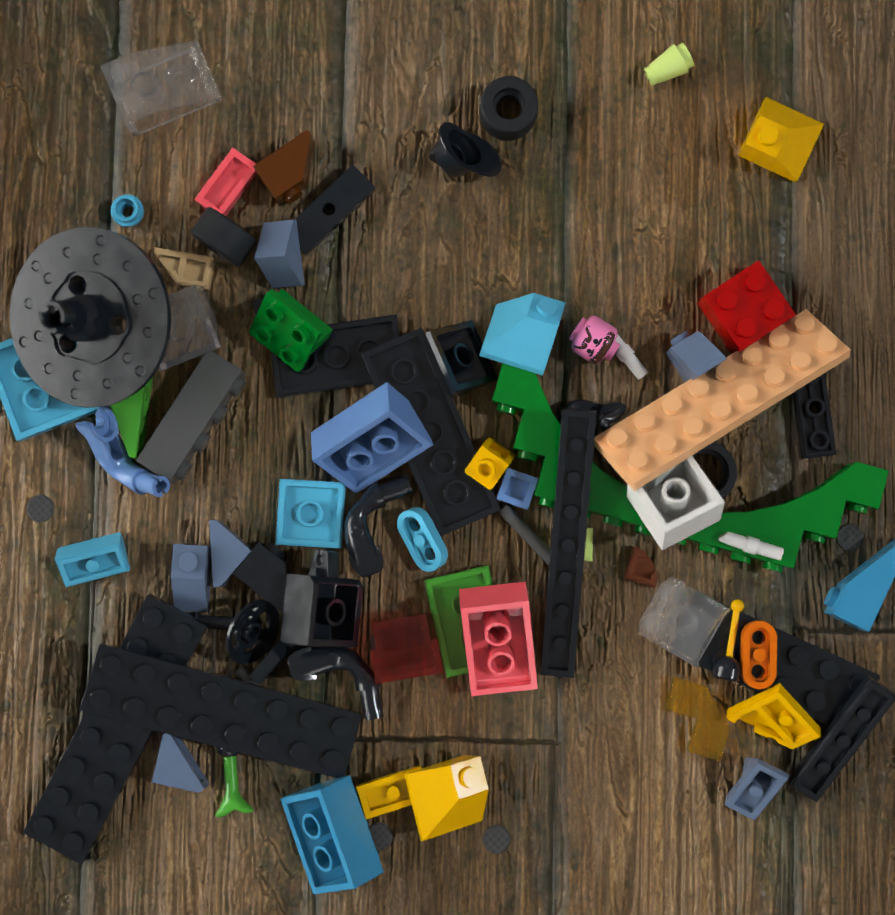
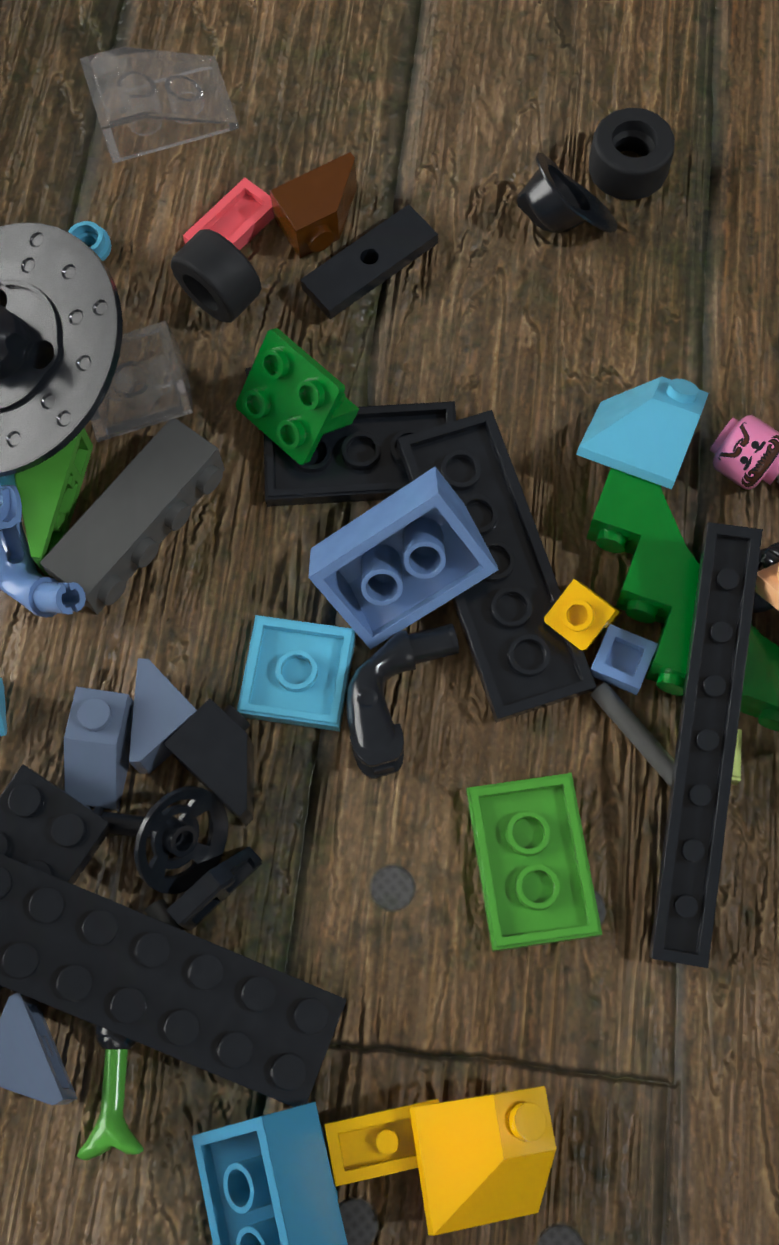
camera: 10 degrees right, 15 degrees down
(187, 268) = (145, 312): tan tile -> none
(280, 254) = (294, 303): sand blue slope -> none
(314, 660) = (273, 900): black piece -> none
(322, 606) = (298, 806): black hinge -> none
(404, 648) = (428, 887): clear red plate -> none
(421, 539) = (468, 725): medium azure plate -> none
(458, 357) = (545, 464): black slope -> none
(498, 638) = (586, 889): coral slope -> none

